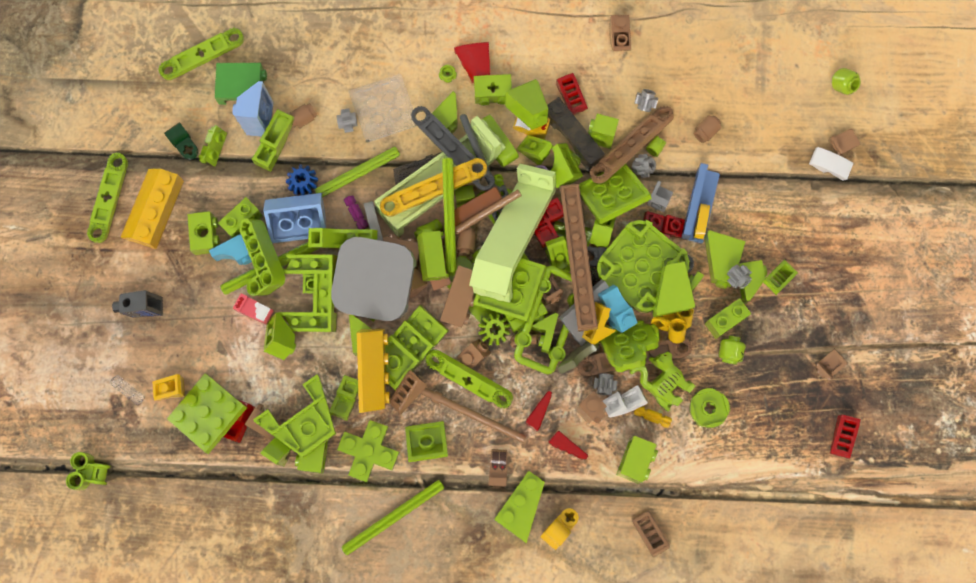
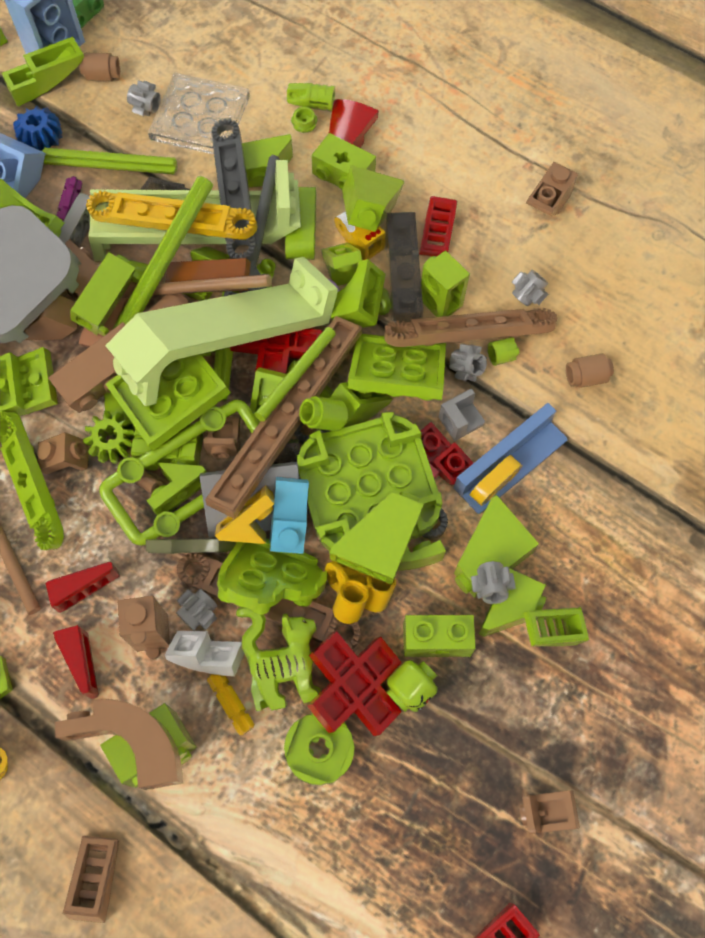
camera: 30 degrees right, 10 degrees down
(441, 54) = (311, 95): none -> lime hinge
(568, 233) = (294, 374): none -> lime bar
(599, 245) = (323, 413): none -> lime brick
(639, 453) = (153, 747): none -> medium nougat arch
(706, 367) = (354, 684): none -> red plate

